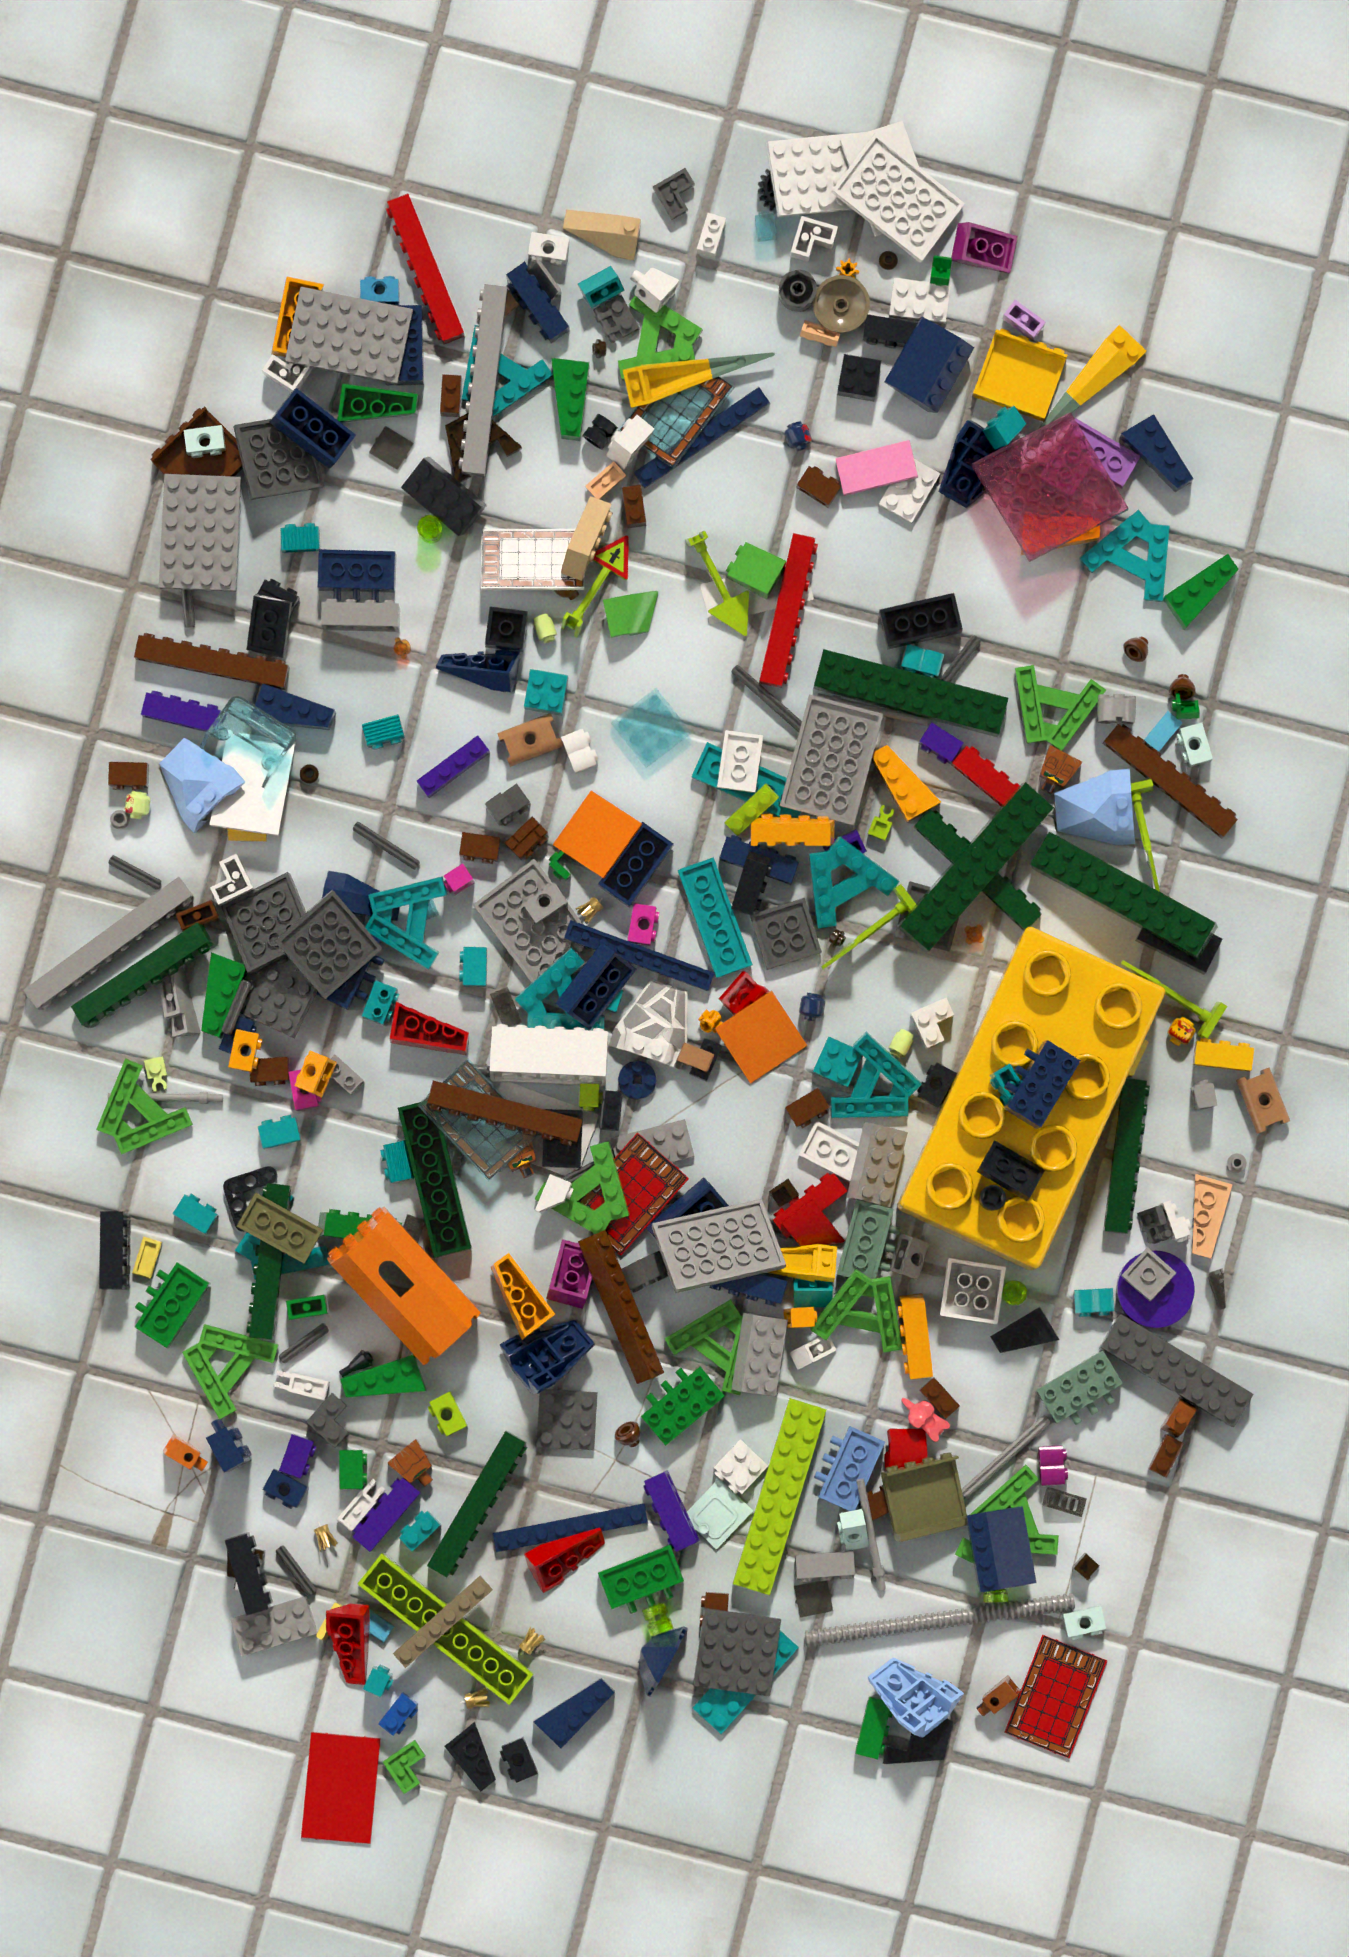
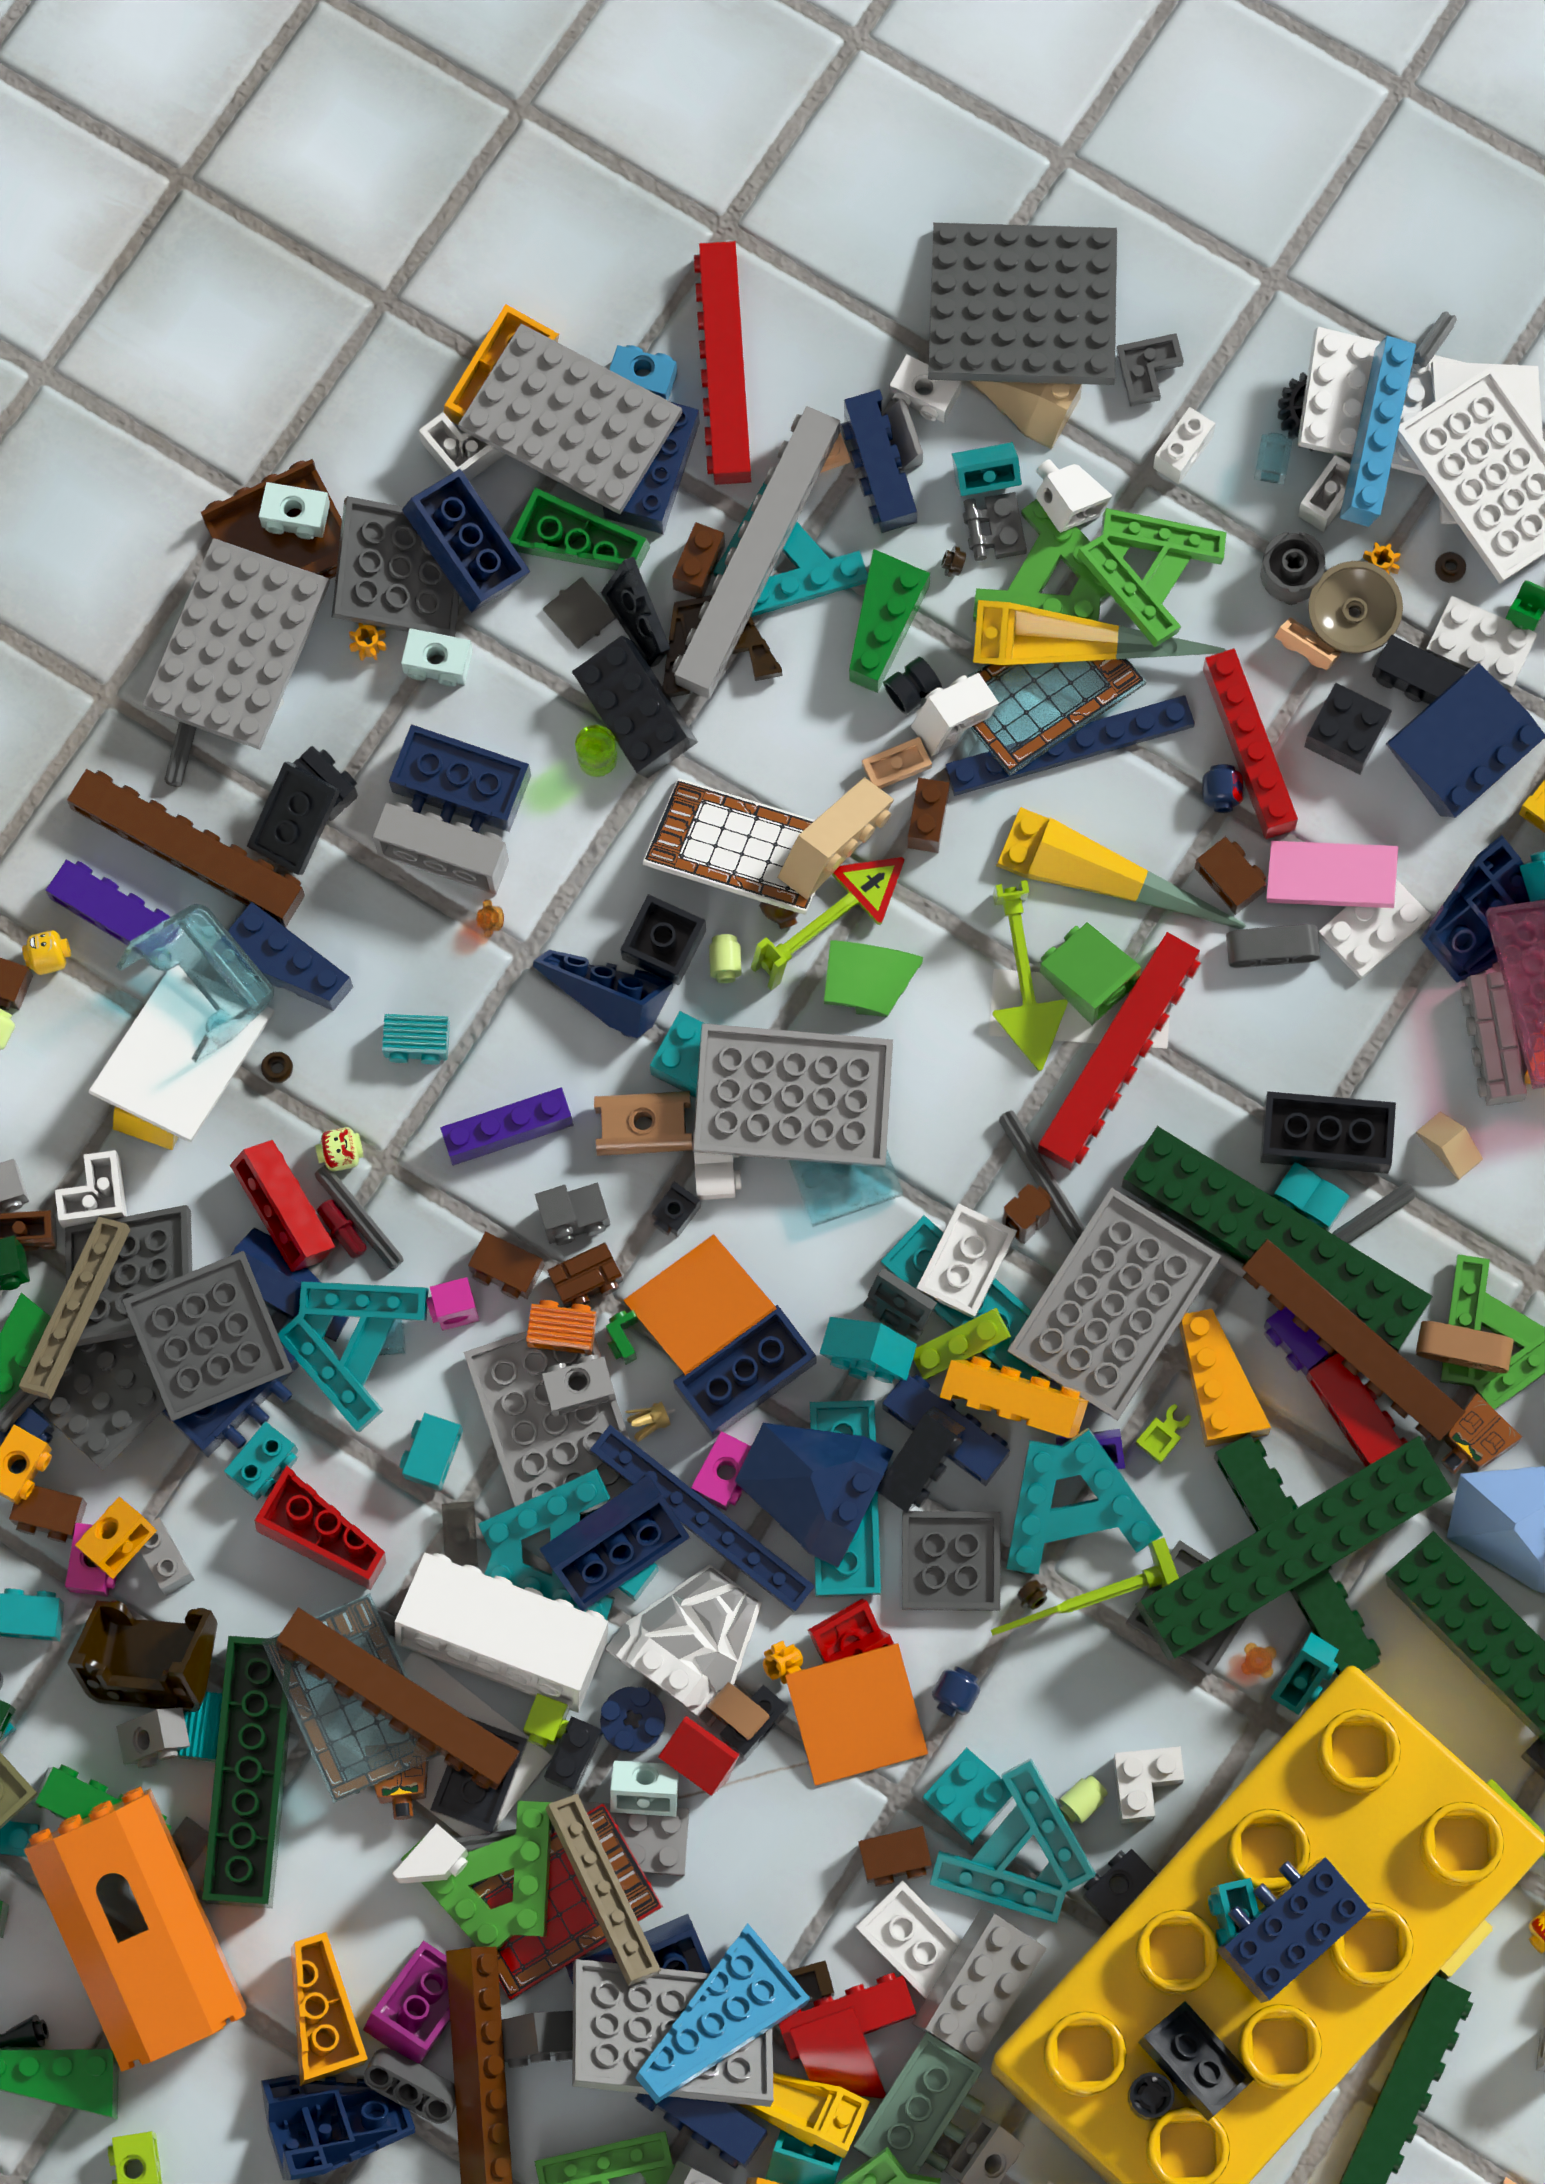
camera: 20 degrees right, 10 degrees down
(153, 750) = (46, 952): none -> yellow head
(197, 781) = (97, 1022): light blue wedge -> none
(246, 951) = (74, 1307): none -> dark tan plate
(273, 510) = (365, 649): none -> light orange gear
(300, 538) = (389, 703): teal brick -> none
(327, 495) = (423, 645): none -> light aqua brick
(341, 853) = (282, 1205): none -> red brick
(354, 1135) = (144, 1660): none -> dark brown windscreen
(362, 810) = (339, 1149): none -> yellowish green head
(374, 1176) = (153, 1737): none -> light grey brick
(379, 856) = (341, 1229): none -> dark red axle
(424, 438) = (635, 611): none -> black wing
(524, 873) = (561, 1328): none -> orange brick
(569, 777) = (675, 1223): none -> black brick
(583, 1320) = (396, 2083): none -> dark grey beam
(590, 178) = (1023, 304): none -> dark grey plate
(611, 698) = (793, 1095): none -> light grey plate
(654, 1180) = (603, 1889): none -> dark tan plate
(657, 1116) = (644, 1788): none -> light aqua brick
(682, 1089) = (699, 1756): none -> red slope
(696, 916) = (814, 1484): none -> dark blue wedge
(701, 831) = (867, 1349): none -> teal brick
(710, 798) = (899, 1304): none -> dark grey plate
(717, 337) = (1176, 546): none -> bright green plate
(717, 505) = (1061, 856): none -> yellow plate
(746, 1222) = (730, 2009): none -> dark azure wing
(765, 722) = (1027, 1212): none -> reddish brown brick
(805, 404) = (1250, 744): none -> red brick
(822, 195) = (1377, 431): none -> dark azure brick
(837, 125) = (1434, 339): none -> dark grey axle
(855, 520) = (1273, 946): none -> dark grey beam
(972, 738) = (1352, 1339): none -> reddish brown brick
(991, 604) = (1450, 1144): none -> tan slope
(998, 535) = (1495, 1039): none -> light grey brick
(1002, 934) = (1305, 1673): none -> teal brick
(1035, 721) = (1464, 1347): none -> medium nougat beam

